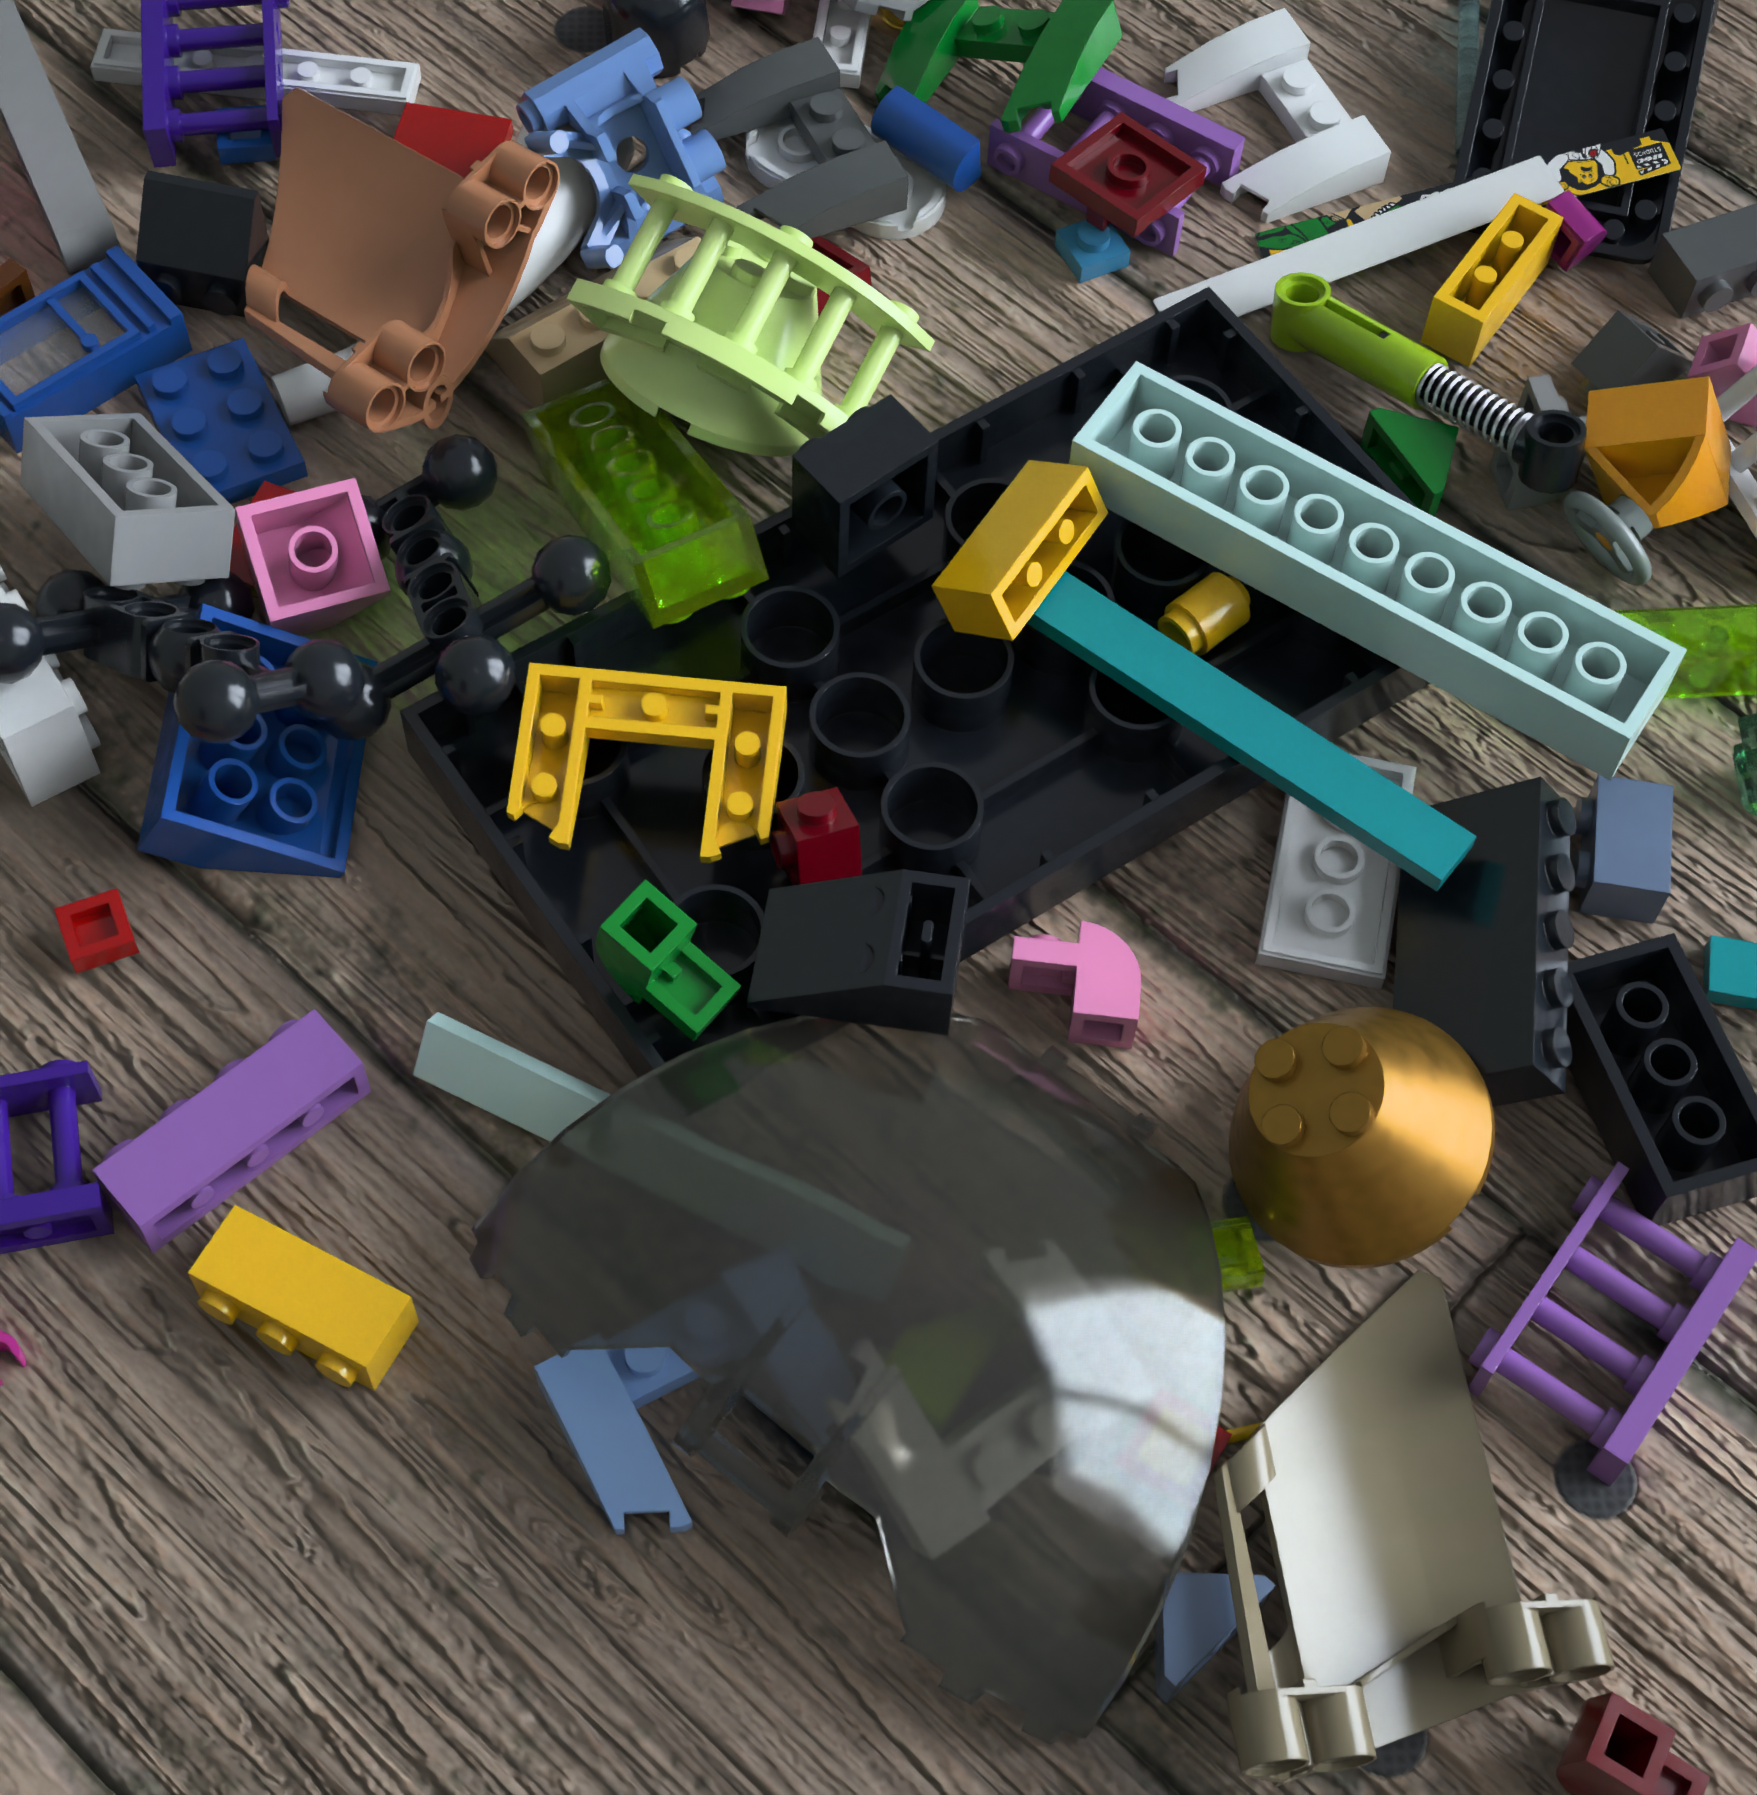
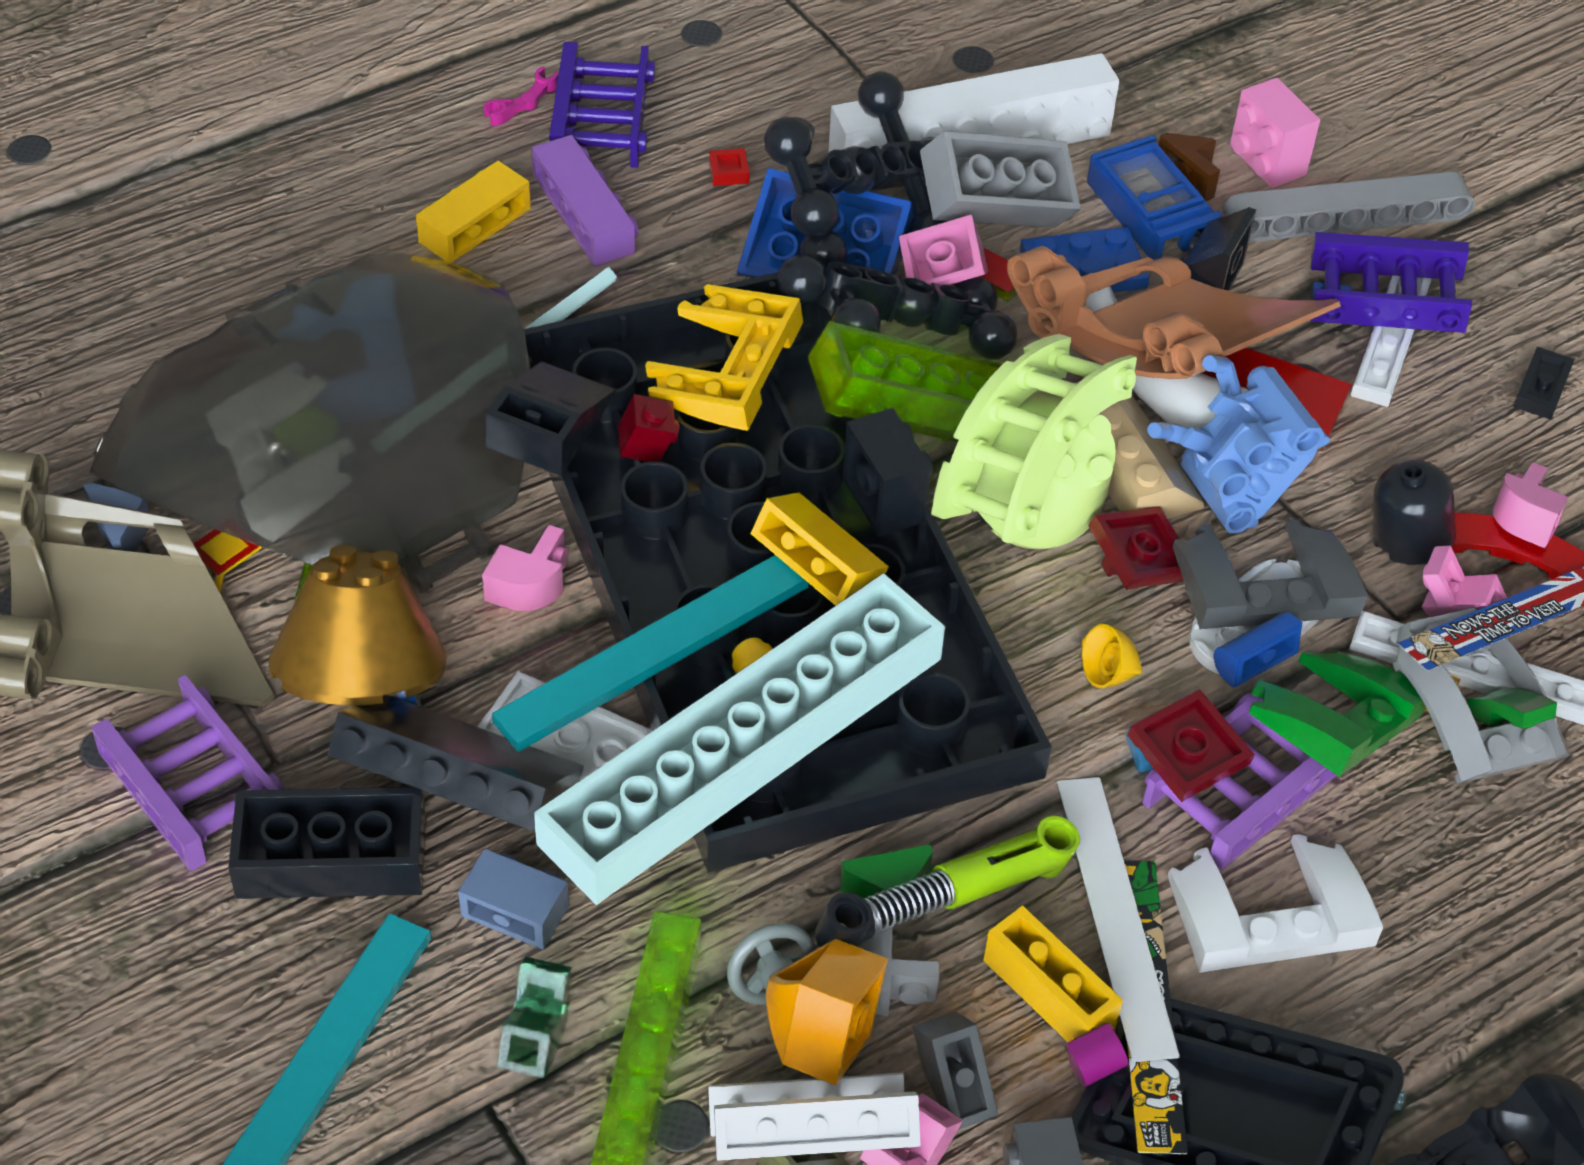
camera: 105 degrees right, 10 degrees down
(652, 960) = (583, 322): green brick -> none
(989, 292) = (1109, 657): none -> yellow hat

